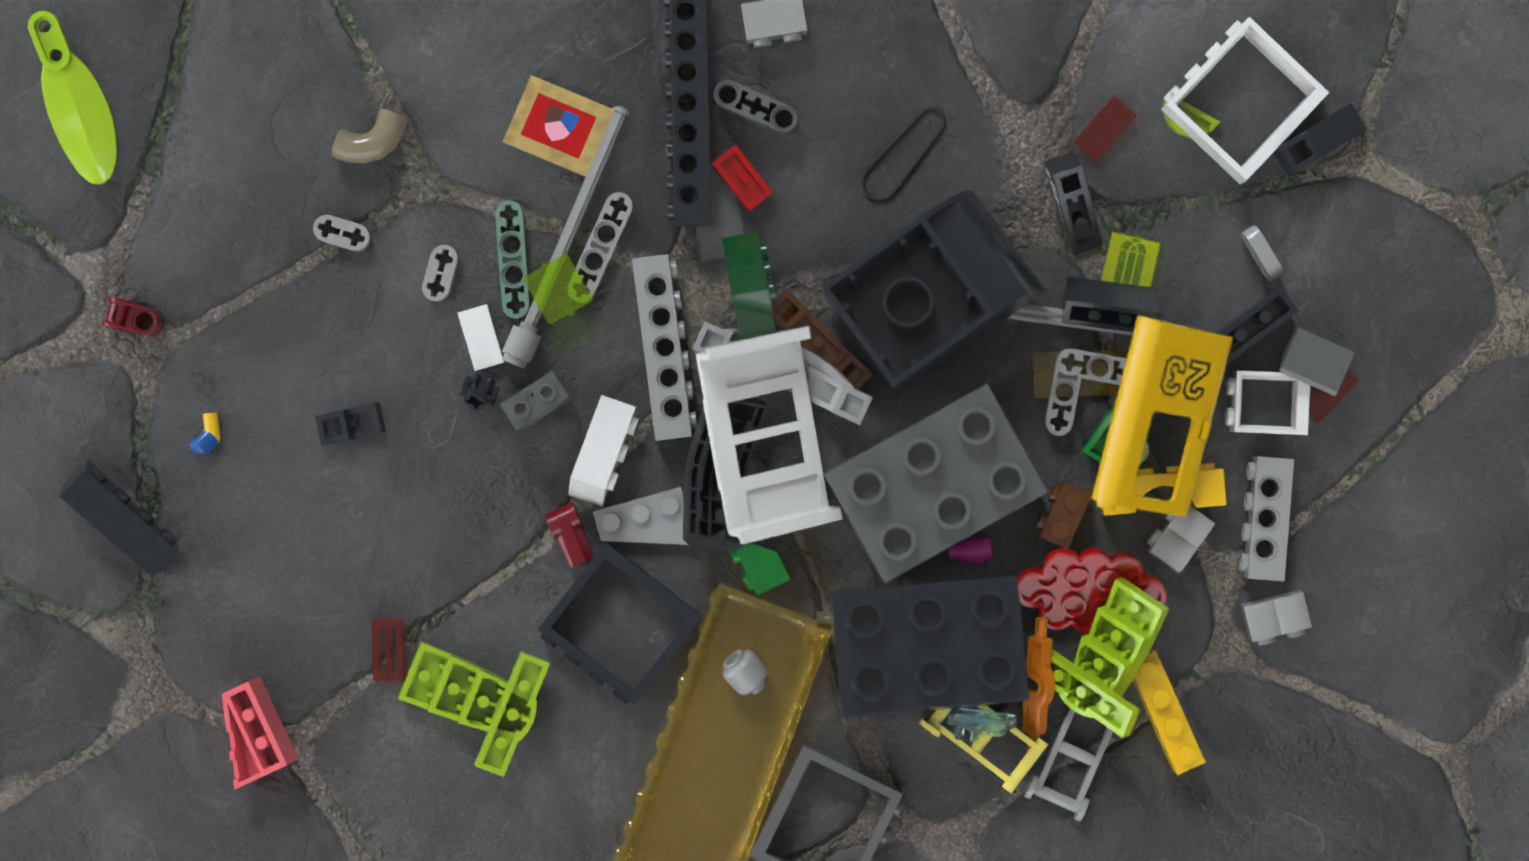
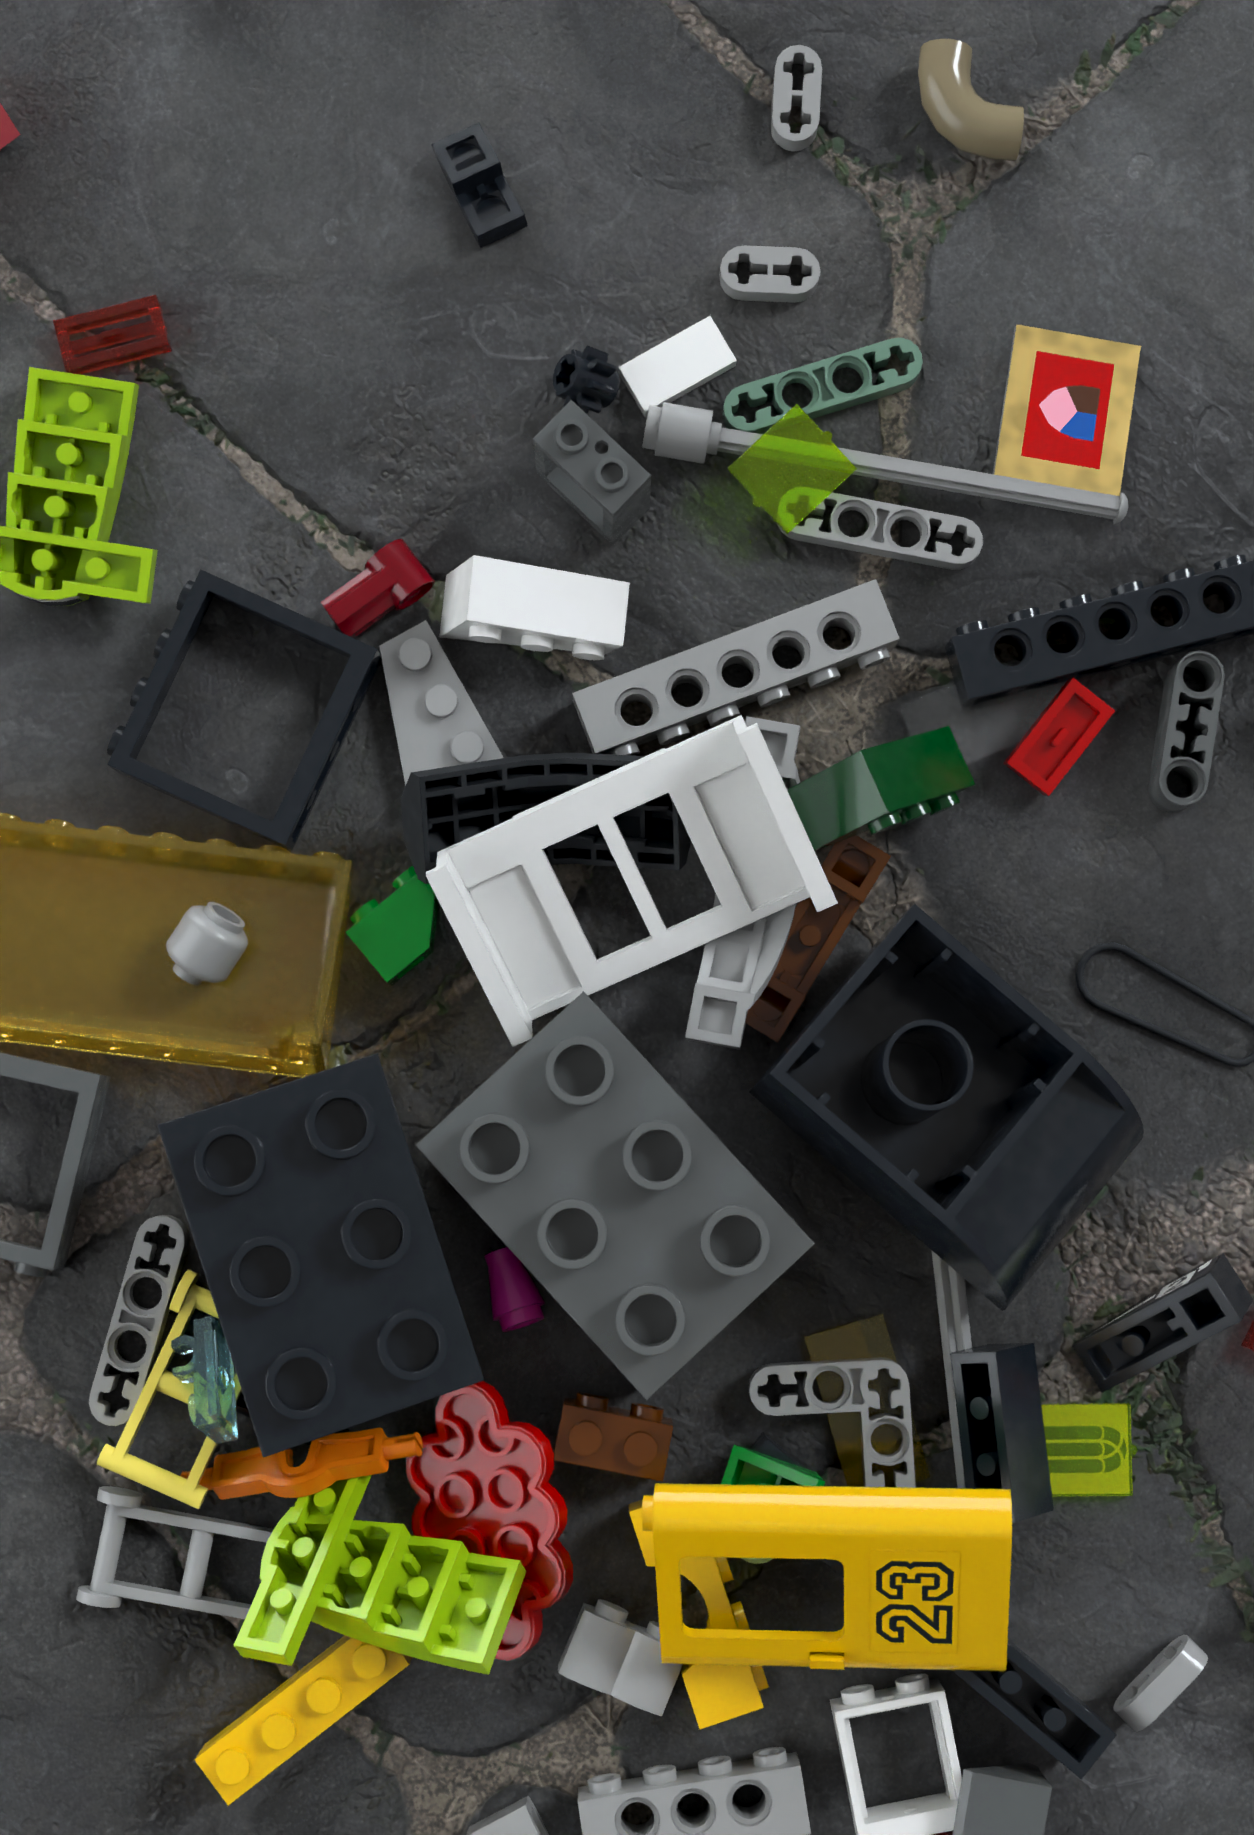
camera: 75 degrees right, 5 degrees down
(937, 759) = (132, 1317): none -> light grey beam

